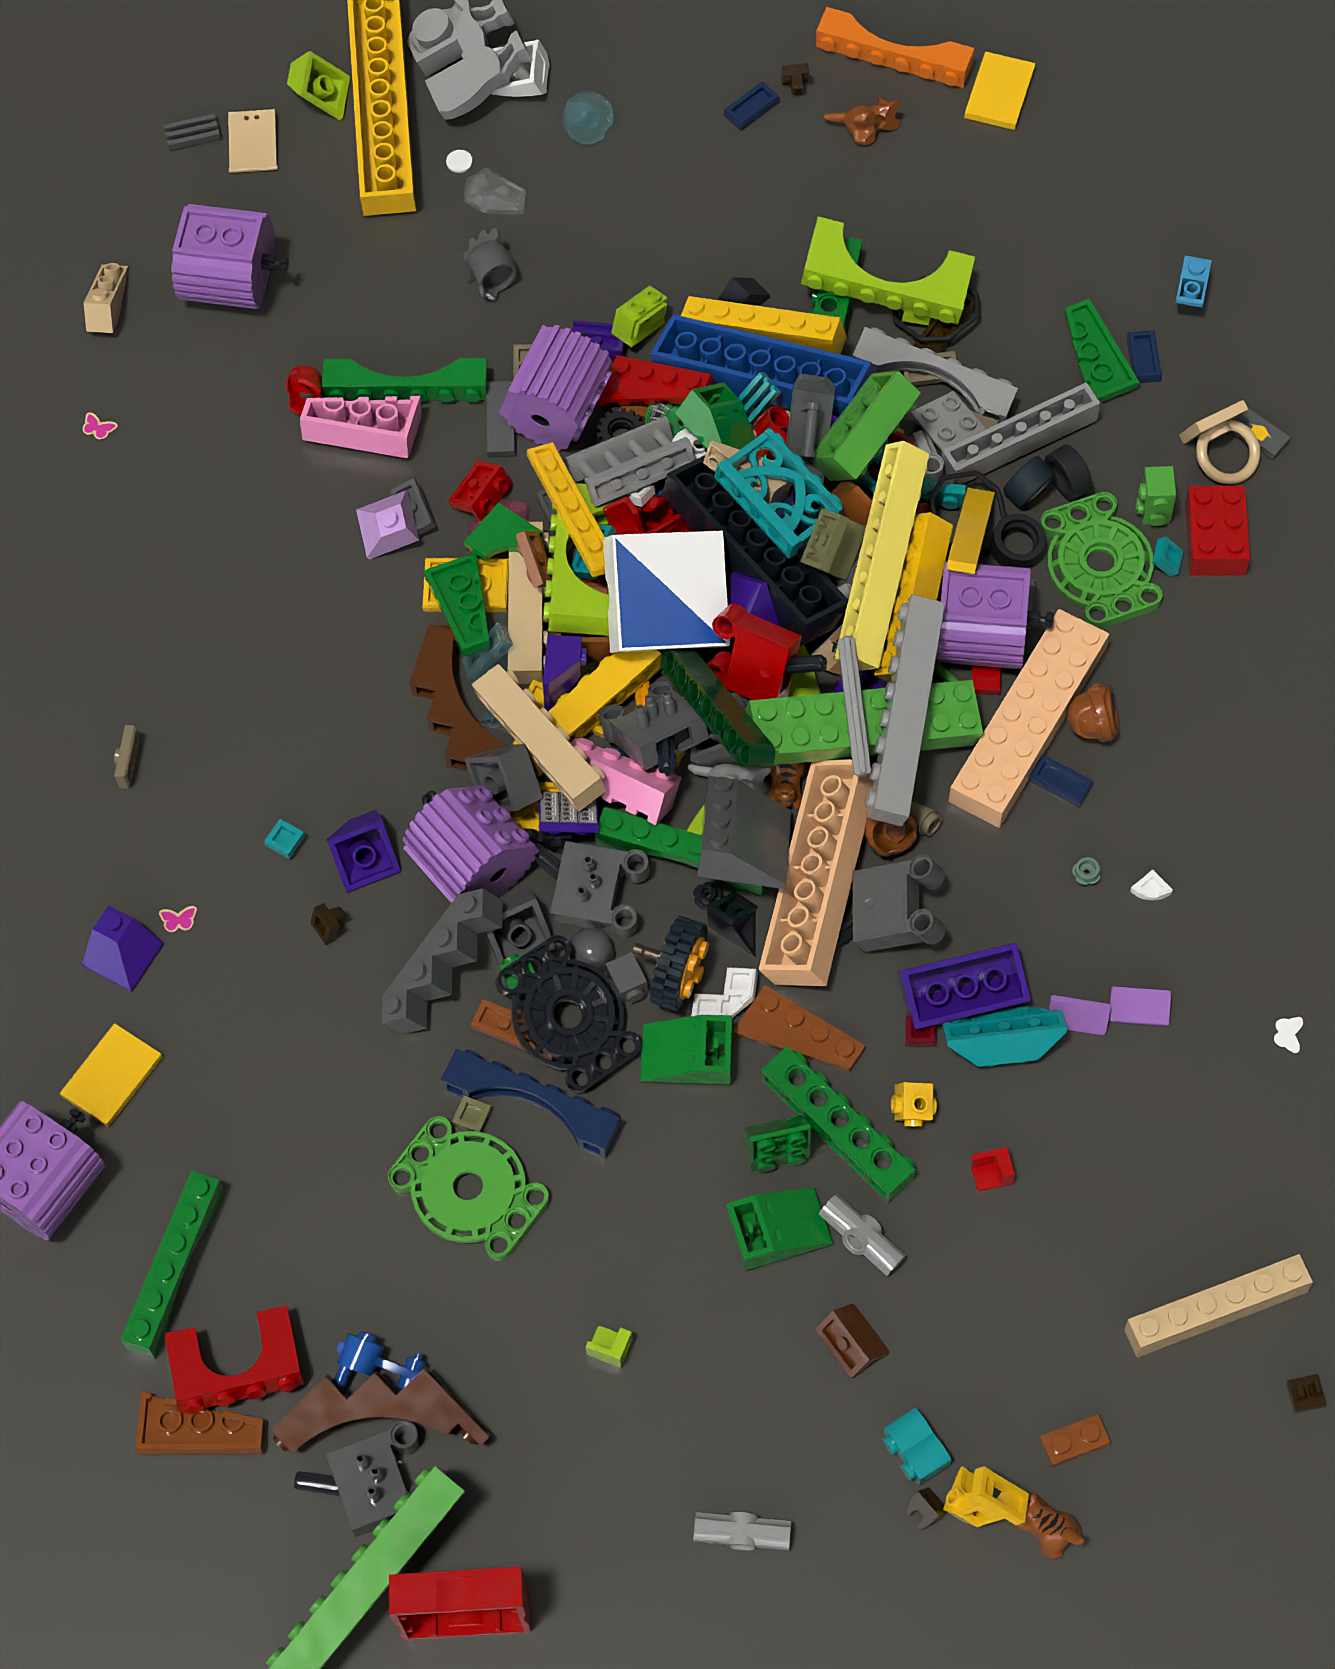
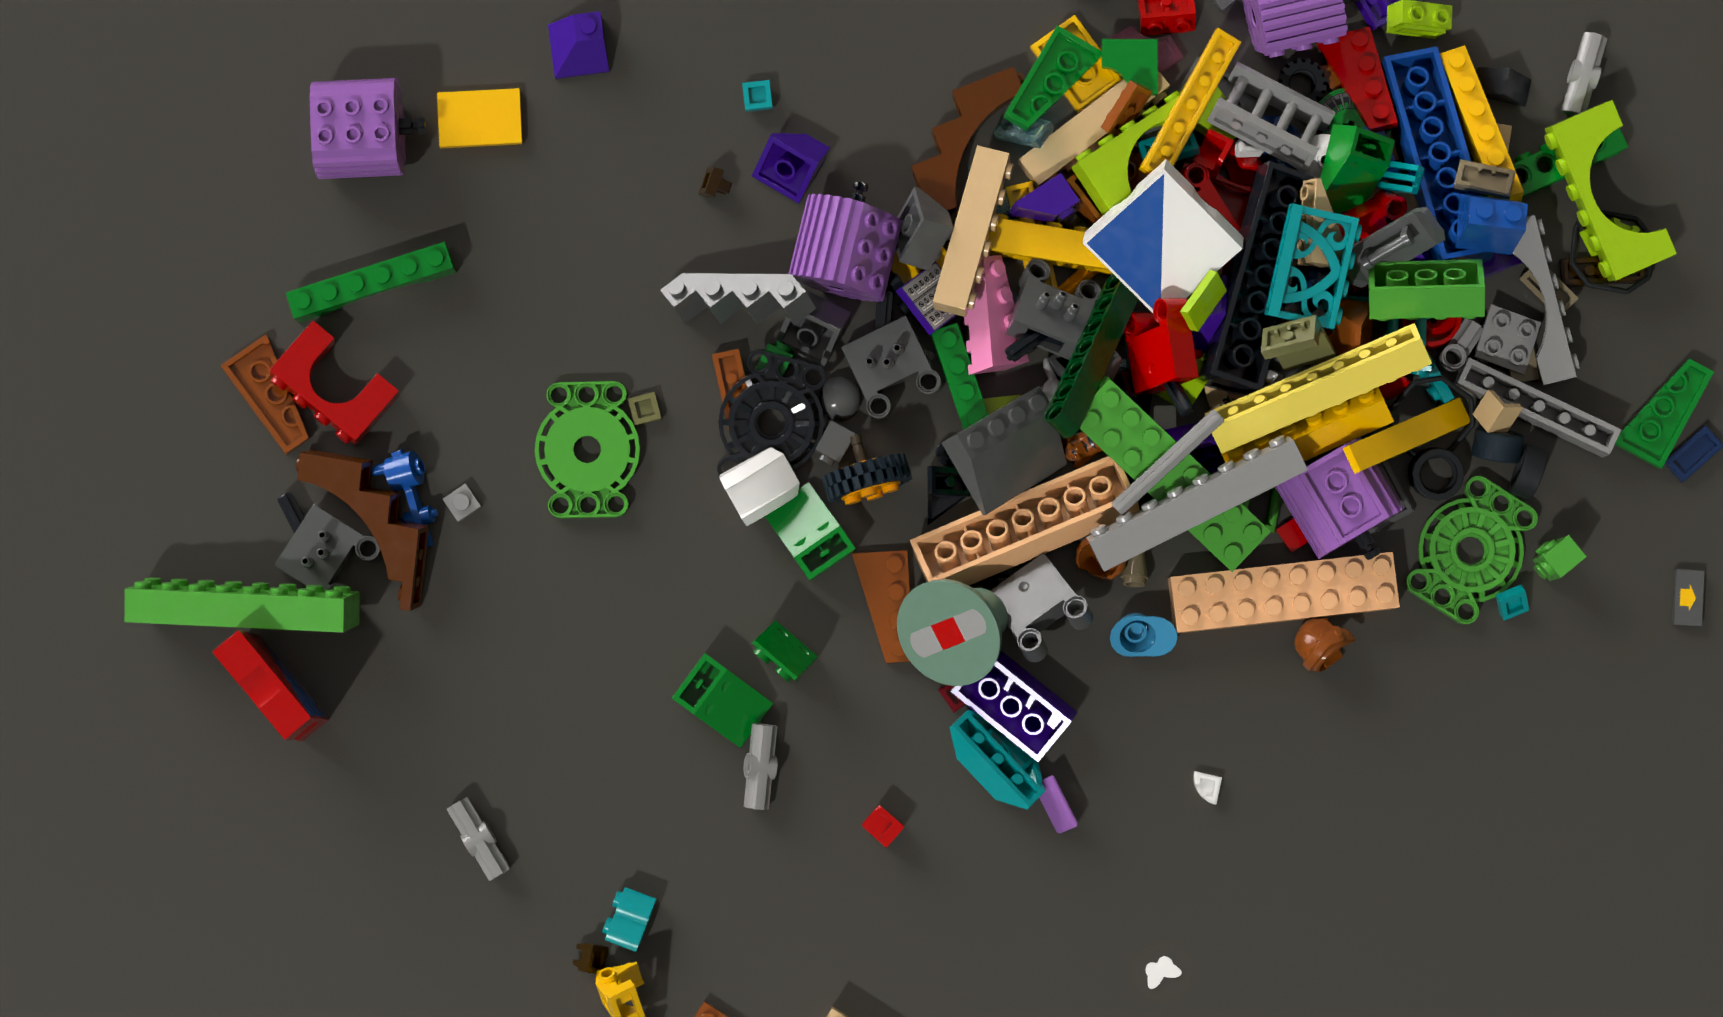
camera: 50 degrees right, 20 degrees up
(181, 920) = (634, 65): dark pink sticker -> none
(428, 1329) = (462, 502): none -> light grey plate
(472, 1077) = (696, 503): dark blue arch -> none
(610, 1345) = (544, 642): lime panel -> none
(615, 1059) = (760, 485): none -> white slope
(738, 994) = (883, 536): white tile -> none
(741, 590) = (1203, 300): none -> lime tile
(778, 237) = (1584, 73): none -> light grey piece
(808, 335) = (1484, 179): none -> dark tan plate
(848, 344) = (1490, 224): none -> blue slope
(851, 1339) = (677, 815): reddish brown panel -> none
(864, 984) = (952, 630): none -> sand green piece
(886, 1181) = (840, 614): green brick -> none
(913, 1103) = (890, 731): yellow brick -> none
(984, 844) = (1143, 635): none -> dark azure piece
(1002, 459) = (1495, 414): none -> tan panel
(1061, 781) = (1248, 654): dark blue tile -> none
(1090, 865) = (1175, 728): sand green plate -> none
(1139, 1006) = (1097, 845): medium lavender slope -> none
(1216, 426) = (1660, 560): tan tile -> none
(1217, 531) = (1565, 626): red brick -> none

